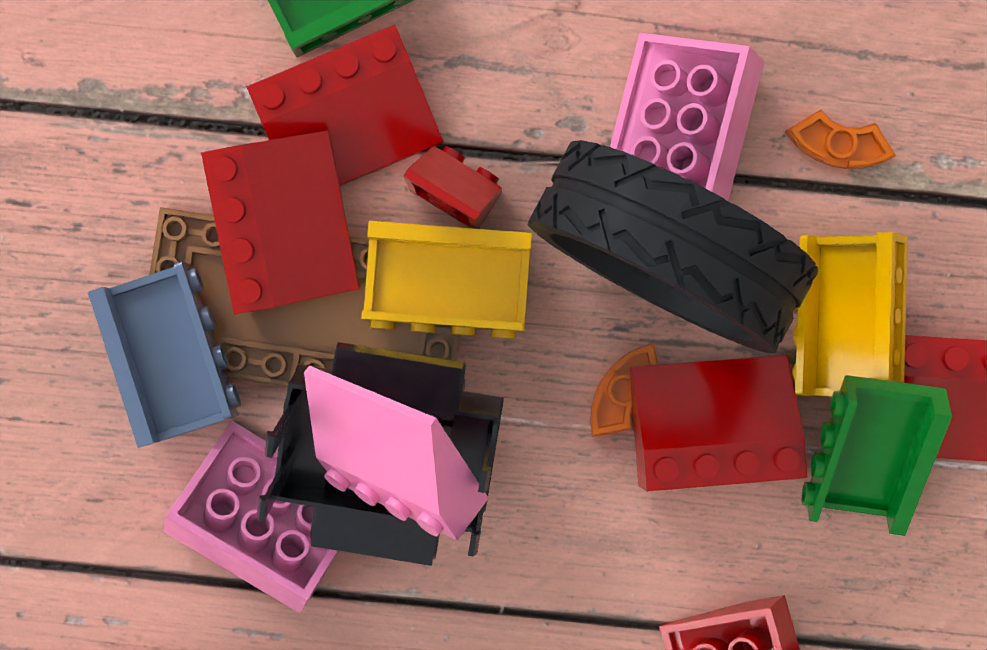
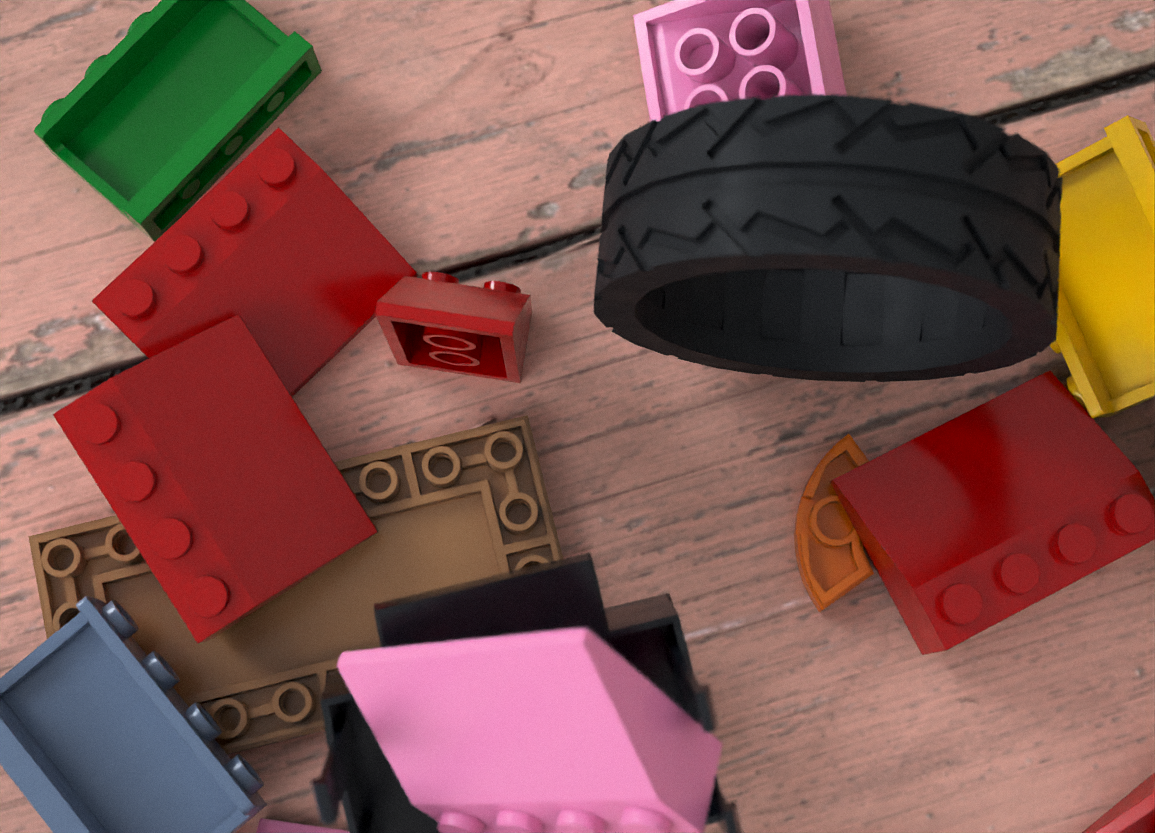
camera: 25 degrees left, 10 degrees down
(446, 278) = (503, 458): yellow panel -> none
(840, 145) = (980, 53): orange tile -> none

